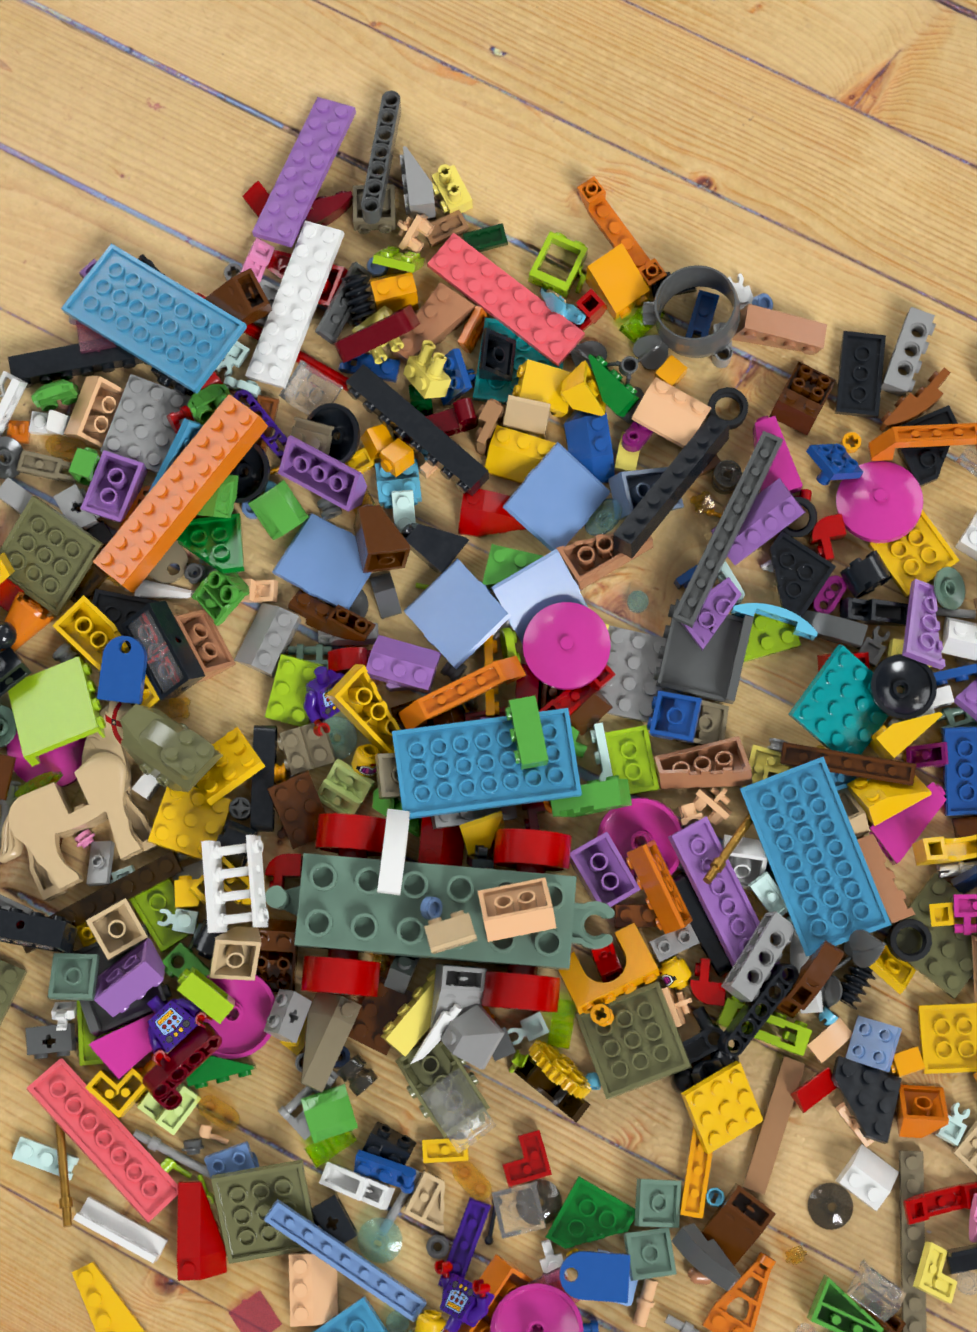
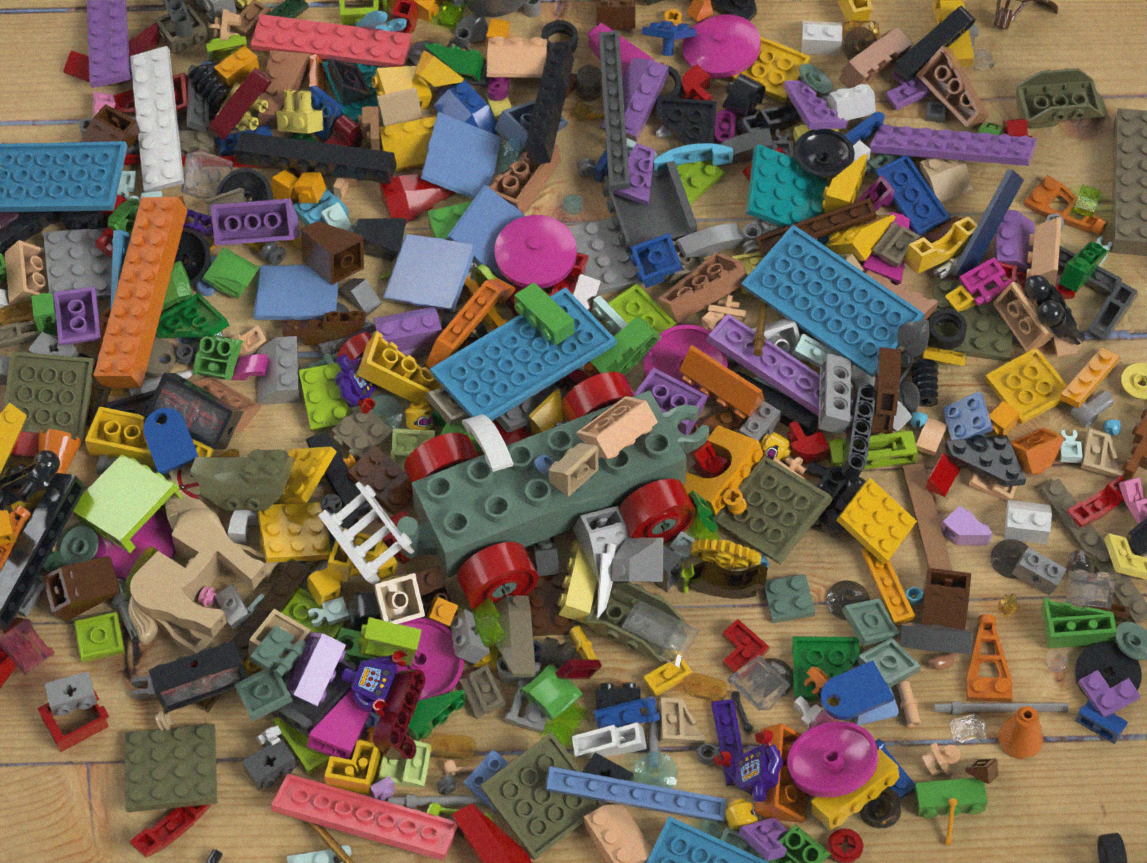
camera: 30 degrees left, 20 degrees down
(99, 942) = (273, 647): none -> sand green plate
(134, 1121) = (383, 789): none -> lavender plate
(244, 621) = (250, 366): none -> dark pink slope
(273, 1072) = (482, 691): none -> dark tan plate
(275, 980) = (442, 611): none -> light orange brick
(309, 1008) = (486, 623): none -> clear neon green slope
(318, 346) = (194, 140): none -> dark tan plate
(373, 1105) = (578, 669): none -> dark red tile
(387, 1078) = (584, 646): none -> yellow axle
(565, 1012) = (703, 511): none -> green slope
(576, 1238) = (818, 677): none -> orange tile
(600, 1132) = (789, 598): none -> sand green plate
(653, 1150) = (836, 596): none -> clear smoke dish
(671, 569) = (586, 167): none -> light grey bush
(741, 717) = (710, 240): none -> light grey slope
(797, 732) = (756, 229): none -> light grey piece
(801, 1154) = (965, 529): none -> lavender slope
(843, 1241) = (1039, 571): none -> light grey brick
(886, 1254) = (1080, 560): none -> clear smoke head
(914, 824) = (894, 244): none -> dark tan plate

